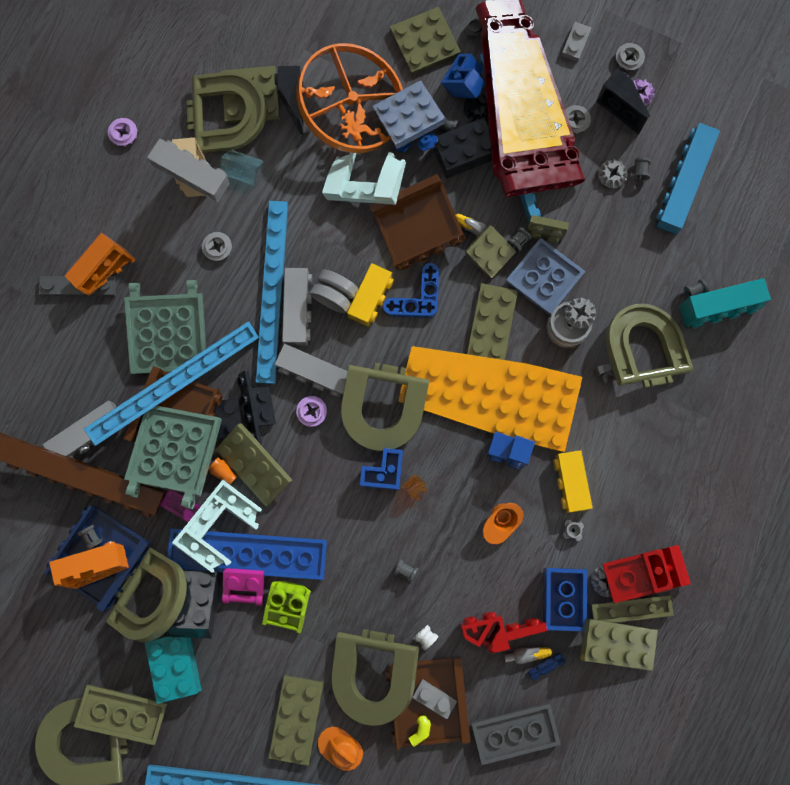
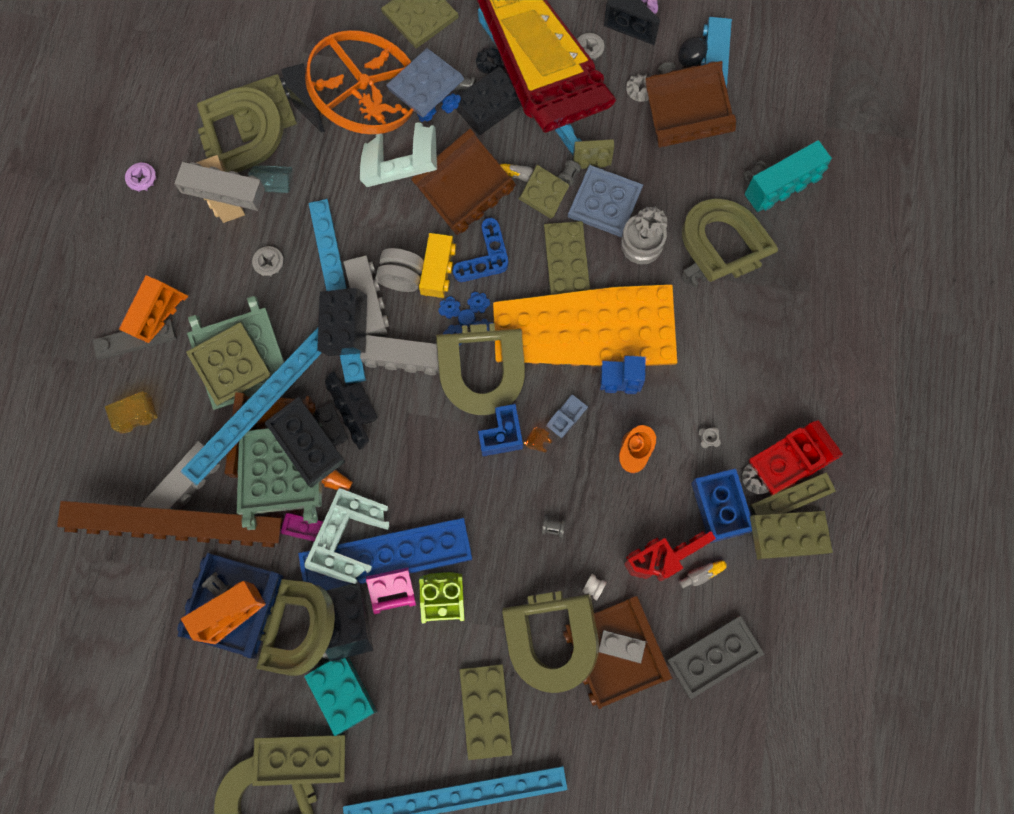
camera: 15 degrees left, 5 degrees down
(57, 354) = (131, 412): none -> clear yellow brick
(154, 337) = (229, 363): none -> olive plate
(201, 433) = (305, 442): none -> black plate
(253, 464) = (370, 465): olive plate -> none
(267, 327) = (342, 322): none -> black brick
(302, 410) = (410, 386): lavender gear -> none
(340, 748) = (539, 728): orange piece -> none
(383, 352) = (466, 316): none -> blue plant
(423, 731) = (620, 683): neon yellow arm -> none
(448, 472) = (567, 416): none -> sand blue slope
(464, 77) = (468, 35): blue brick -> none
(546, 667) = (725, 581): dark blue axle -> none
(572, 481) = (694, 389): yellow brick -> none
(653, 206) = (690, 104): none -> reddish brown panel
(672, 152) = (692, 51): none -> black hat

